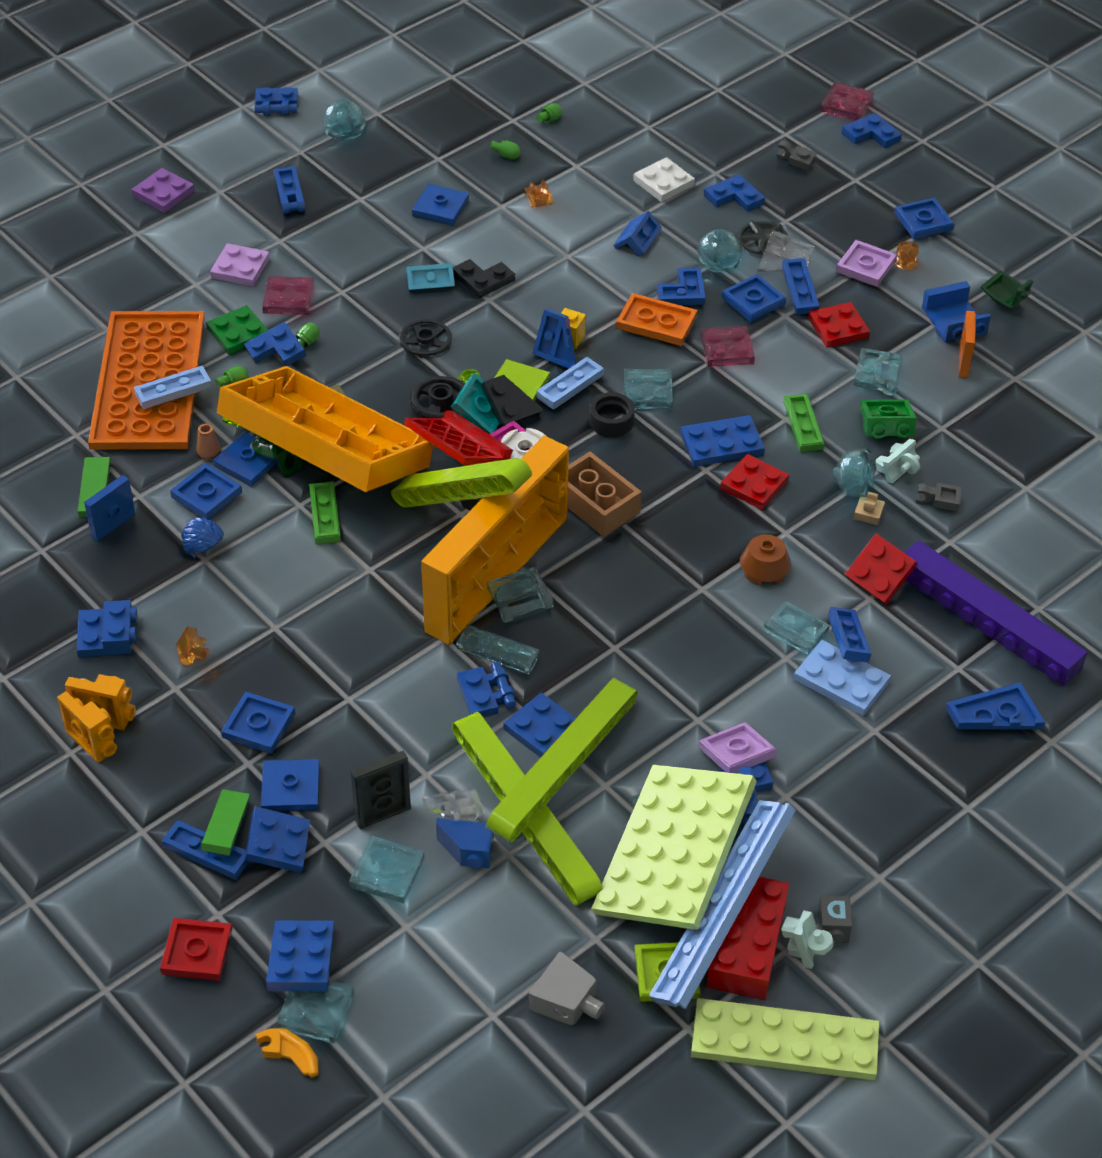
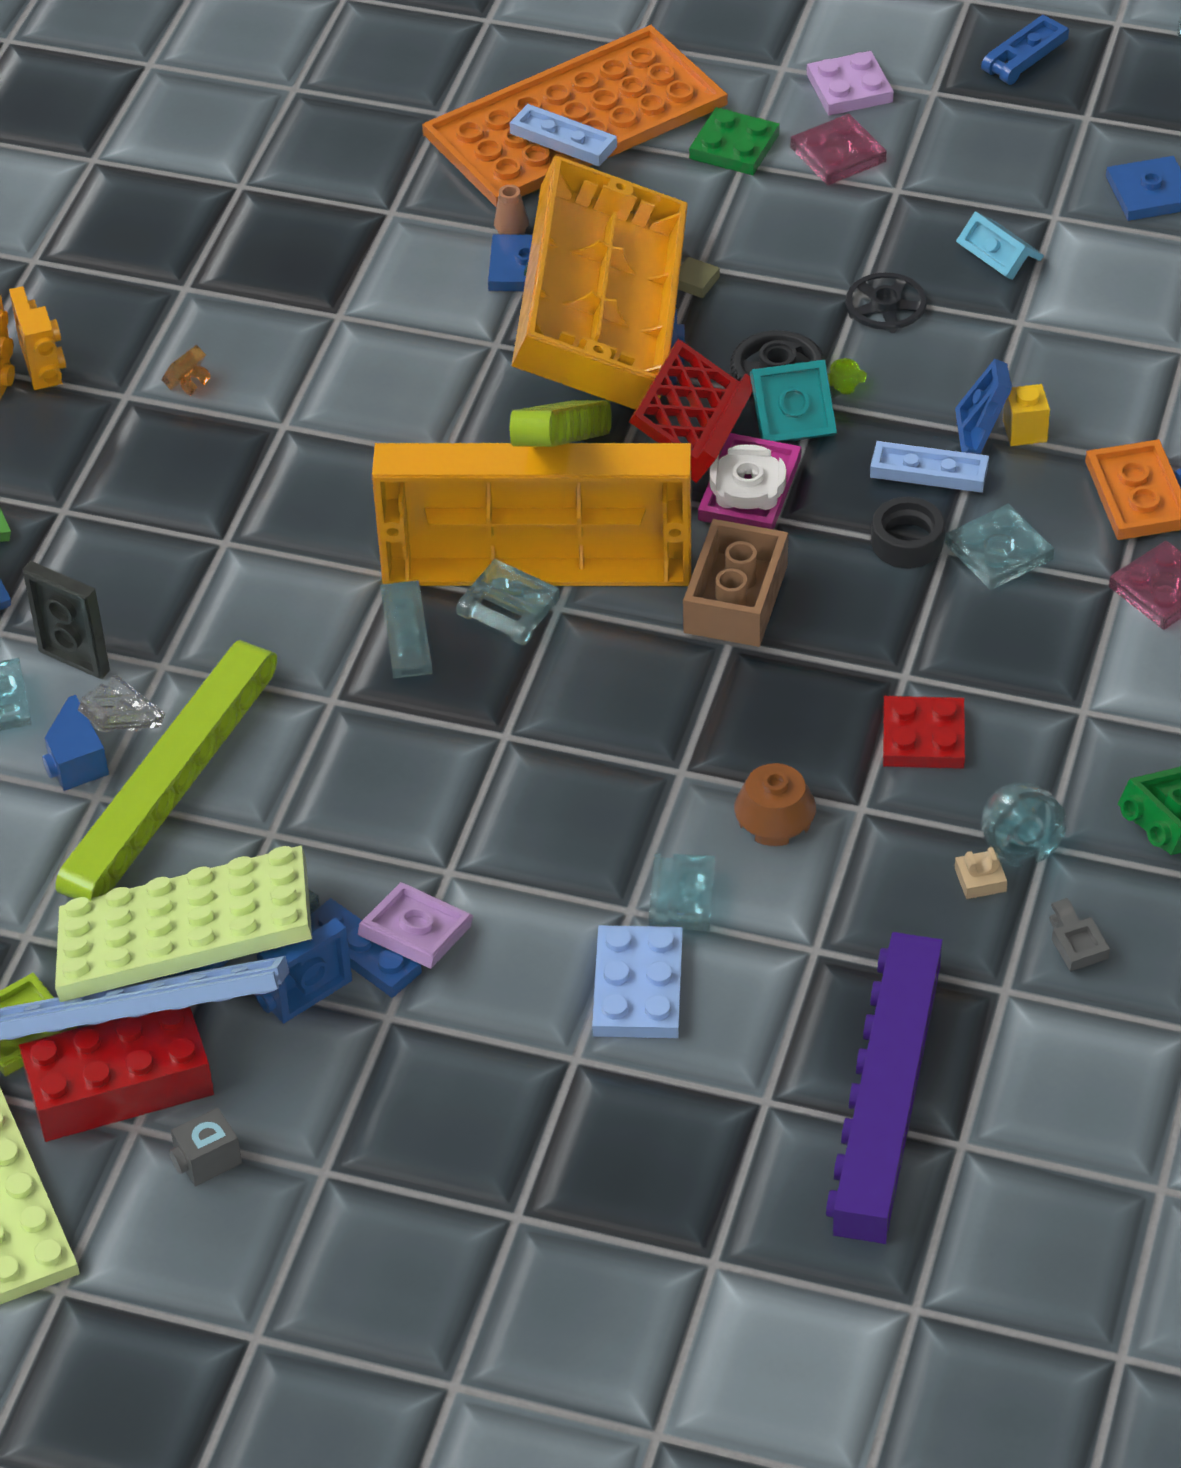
camera: 60 degrees right, 0 degrees up
(94, 478) = (368, 169): bright green tile -> none
(107, 629) = (160, 296): blue plate -> none
(109, 508) = (325, 191): blue plate -> none
(200, 535) = (358, 284): blue hair -> none
(206, 491) = (436, 256): blue plate -> none
(232, 375) = (647, 176): bright green cylinder -> none
(258, 722) = (119, 483): blue plate -> none
(276, 340) = (735, 183): blue plate -> none
(290, 785) = (57, 548): blue plate -> none
(308, 334) = (775, 198): bright green cylinder -> none
(324, 513) = (484, 377): bright green tile -> none
(478, 692) = (322, 644): blue plate -> none
(481, 281) = (1046, 298): black plate -> none
(509, 401) = (826, 424): black wing -> none
(525, 377) = (885, 418): lime tile -> none
(538, 724) = (315, 728): blue plate -> none
(561, 760) = (252, 759): lime beam -> none
(722, 440) = (971, 664): blue plate -> none
(803, 423) = (1089, 730): bright green tile -> none
(806, 938) = (139, 1124): light aqua hips -> none
(849, 634) = (704, 946): blue plate -> none
(881, 569) = (859, 927): red plate -> none
(901, 460) = (1101, 860): light aqua hips -> none
(996, 709) = (709, 1169): blue wing -> none

